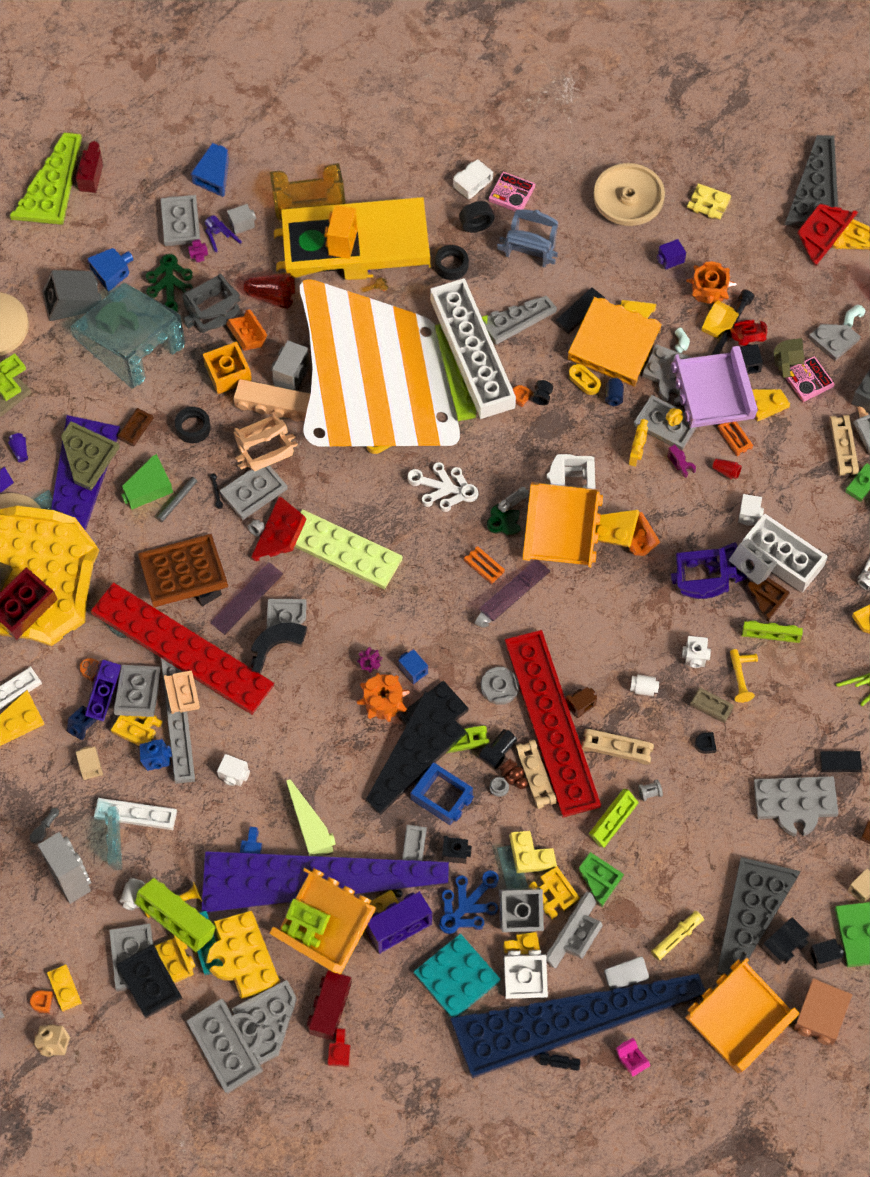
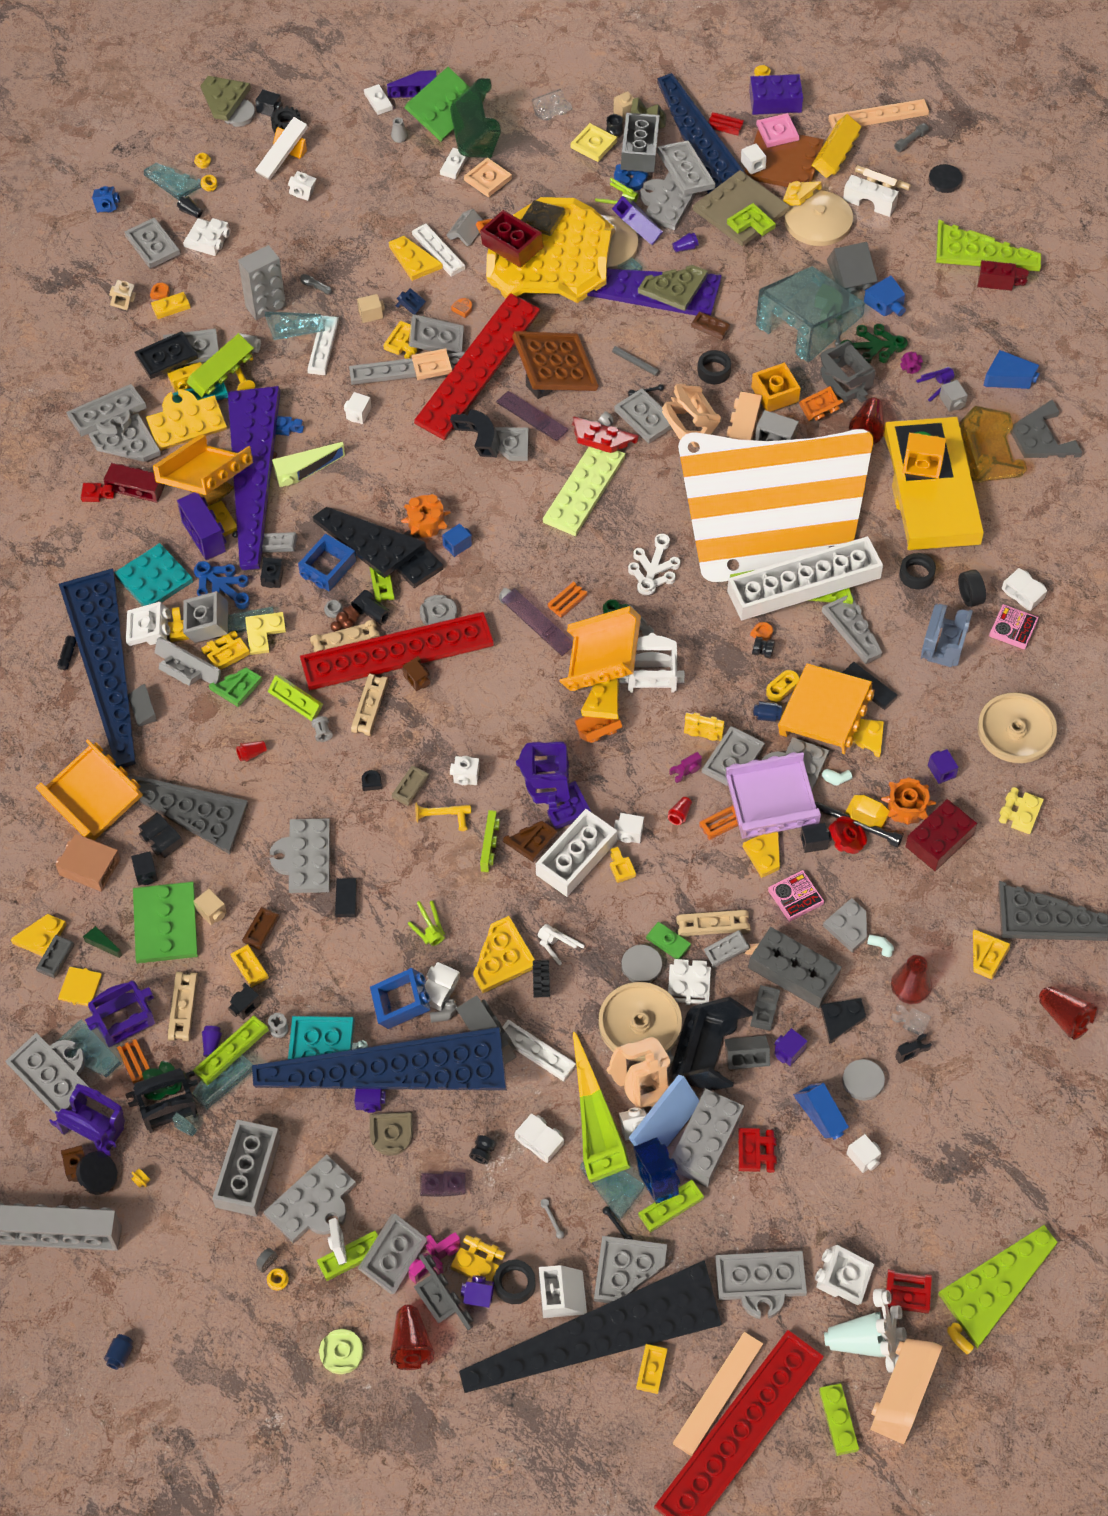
camera: 90 degrees right, 5 degrees down
(102, 690) = (440, 310): dark purple slope -> none
(147, 484) = (649, 336): bright green slope -> none
(155, 754) = (373, 350): blue brick -> none
(180, 220) = (948, 349): light grey plate -> none
(291, 158) = (1037, 440): none -> dark grey wing
(308, 917) = (204, 454): lime plate -> none
(374, 657) = (464, 505): magenta gear -> none
(380, 283) = (885, 511): clear yellow hand -> none
(632, 1057) = (62, 706): dark pink bracket -> none
(644, 685) = (432, 727): white brick -> none
(674, 416) = (734, 756): yellow plate -> none
(679, 861) = (249, 750): none -> red cone
(684, 929) = (180, 752): light yellow pin -> none
(746, 260) = (941, 835): none -> dark red brick
(762, 562) = (560, 816): light grey brick -> none
(788, 353) = (821, 869): olive brick -> none
(792, 517) = (621, 867): none -> yellow plate
(824, 229) = (988, 915): red wing -> none

